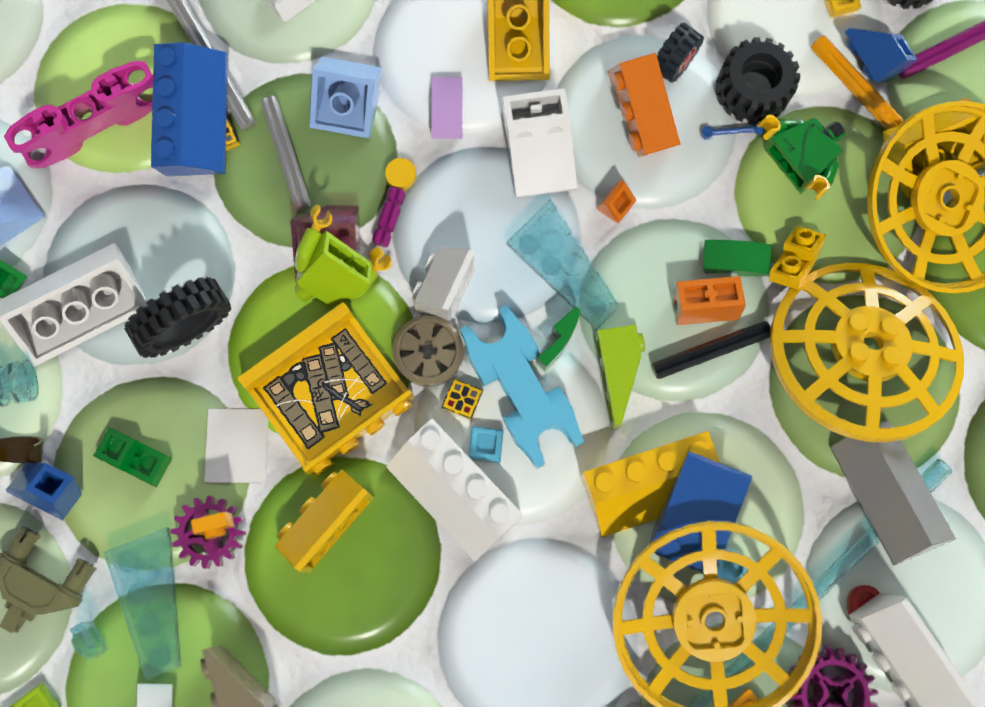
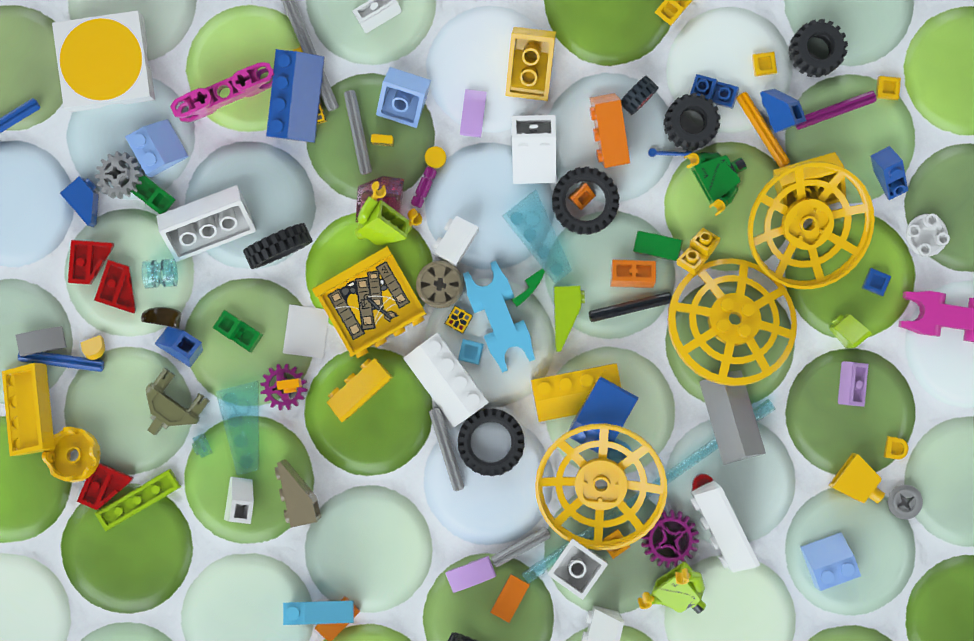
camera: 10 degrees right, 10 degrees up
(321, 157) = (382, 140): none -> yellow tile
(468, 598) = (446, 449): none -> light grey axle
(574, 577) = (491, 468): none -> black tyre
(632, 173) = (596, 177): none -> black tyre
(794, 39) = (718, 92): none -> blue slope

